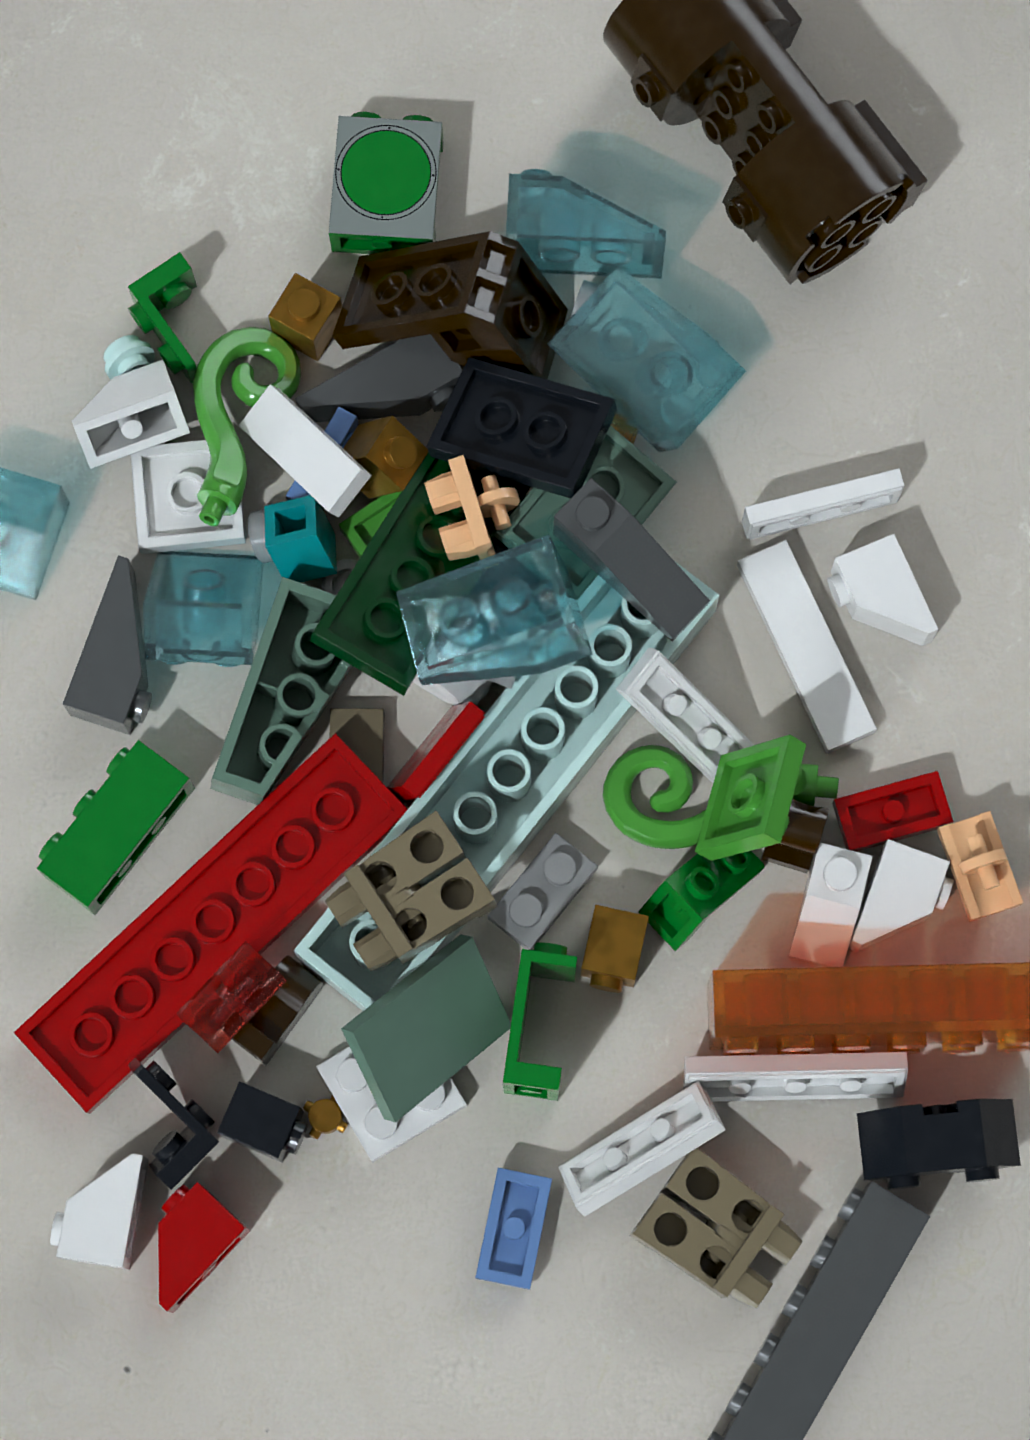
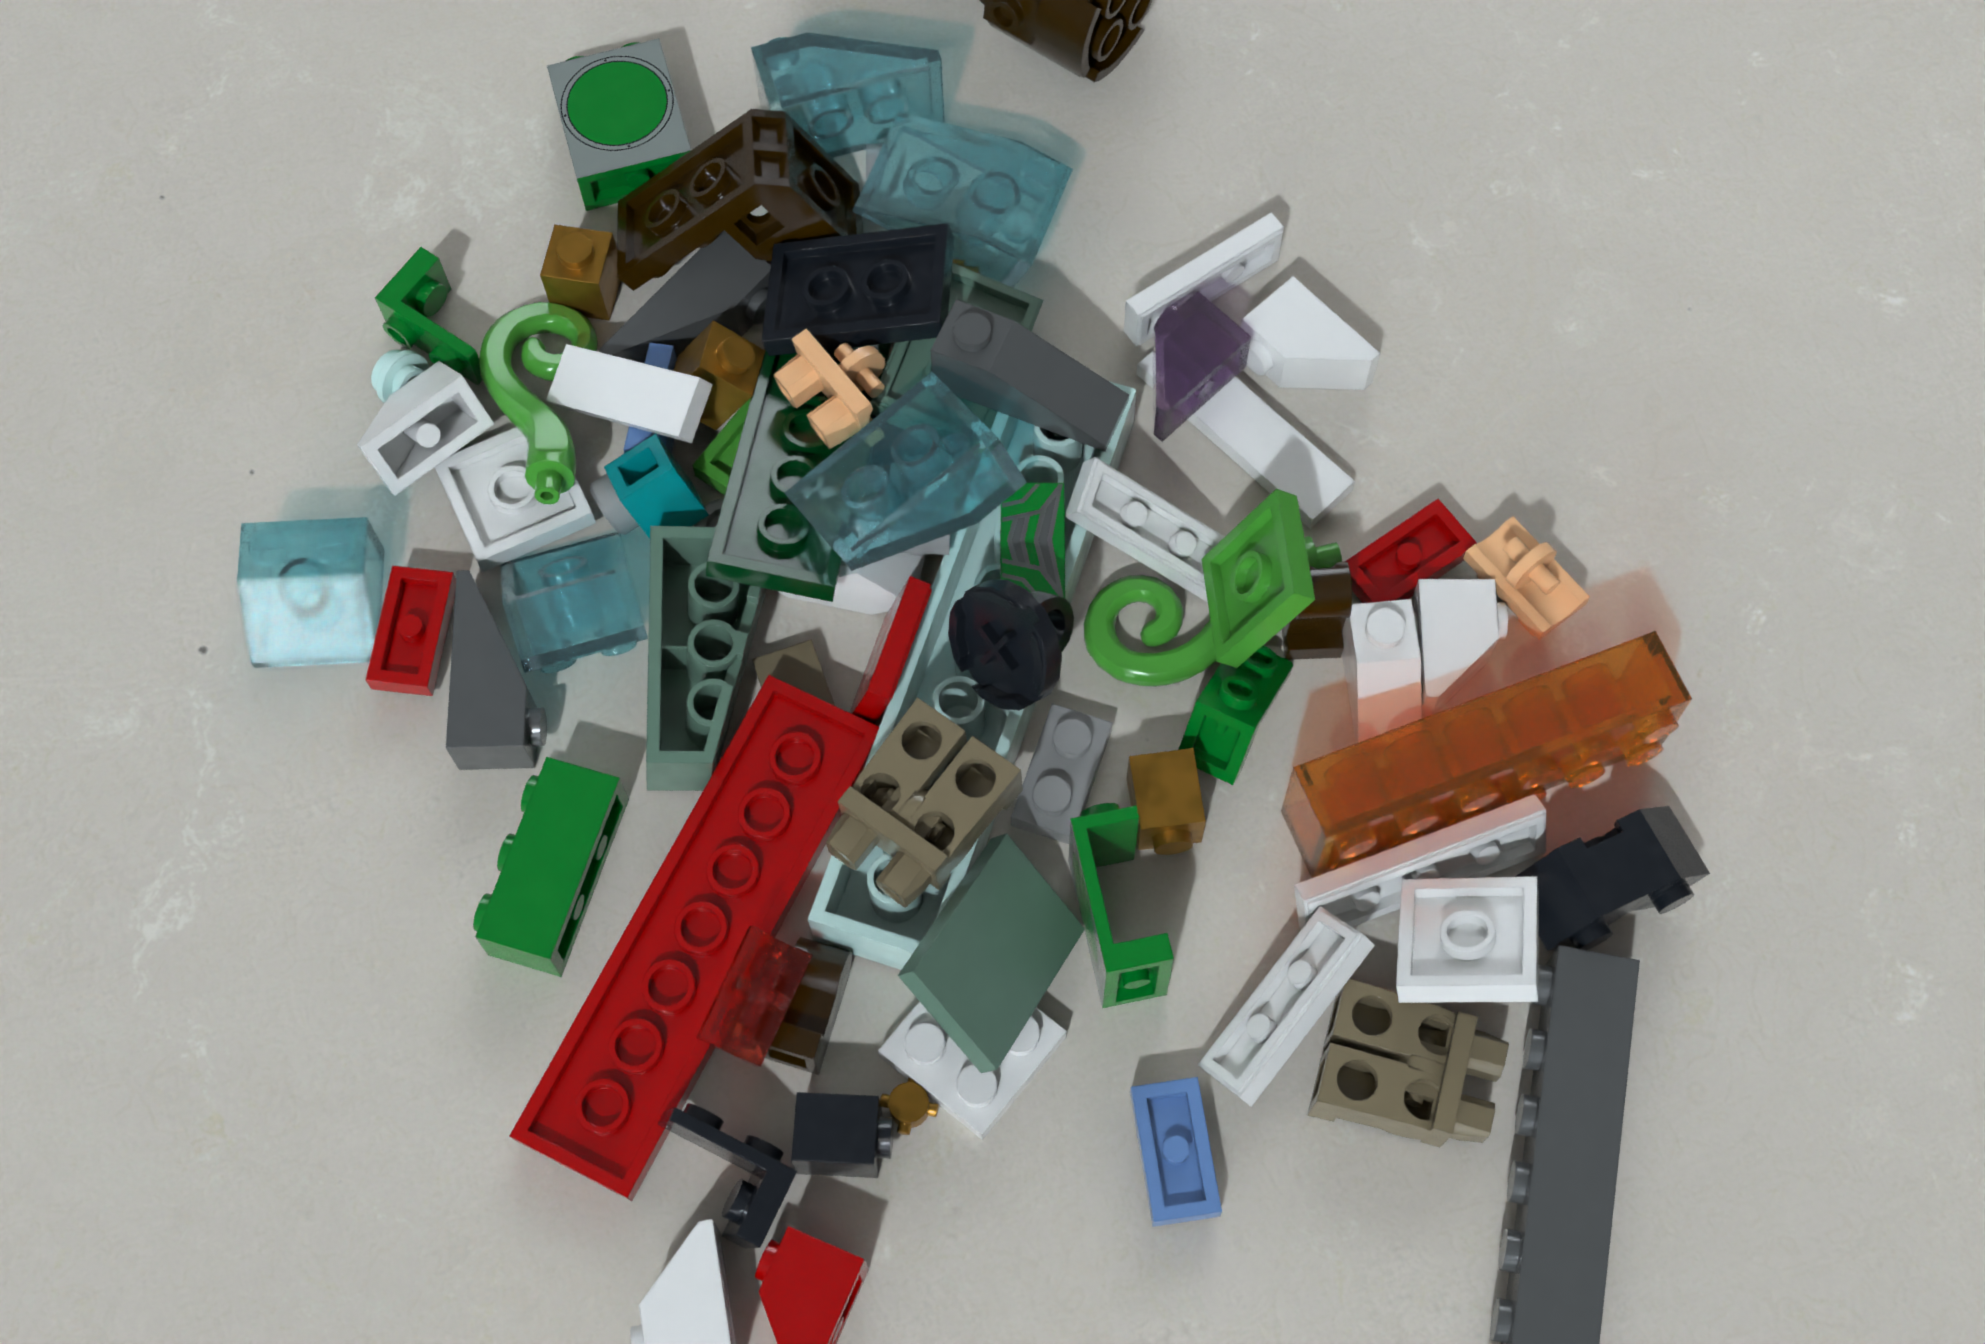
camera: 20 degrees left, 10 degrees down
(69, 587) = (411, 631): none -> red plate
(528, 788) = (1010, 641): none -> black tile
(581, 707) = (1034, 538): none -> tile
(779, 579) = (1192, 360): none -> clear purple slope
(800, 1152) = (1468, 940): none -> white plate

